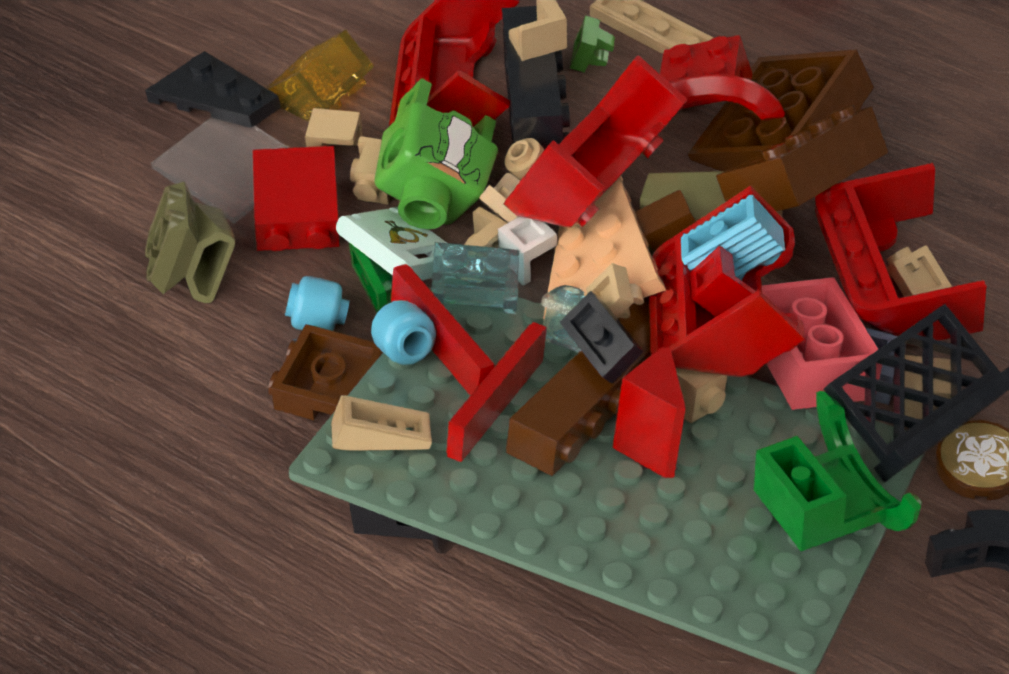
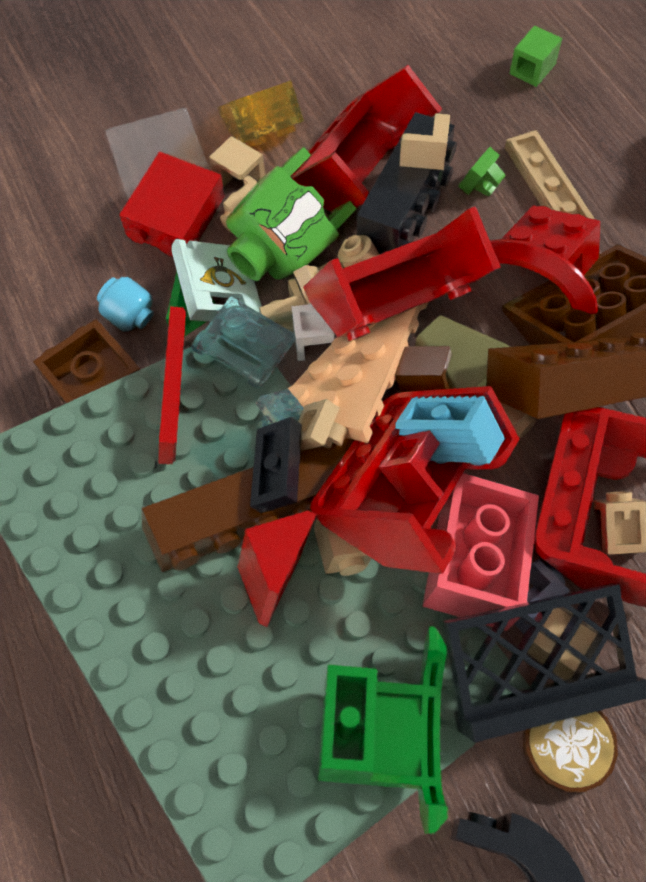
camera: 30 degrees right, 15 degrees up
(188, 243) = (66, 206): olive piece -> none
(215, 88) = (184, 91): black wing -> none
(378, 426) = (45, 433): tan slope -> none
(403, 332) = (138, 370): medium azure head -> none
(495, 392) = (167, 466): red tile -> none

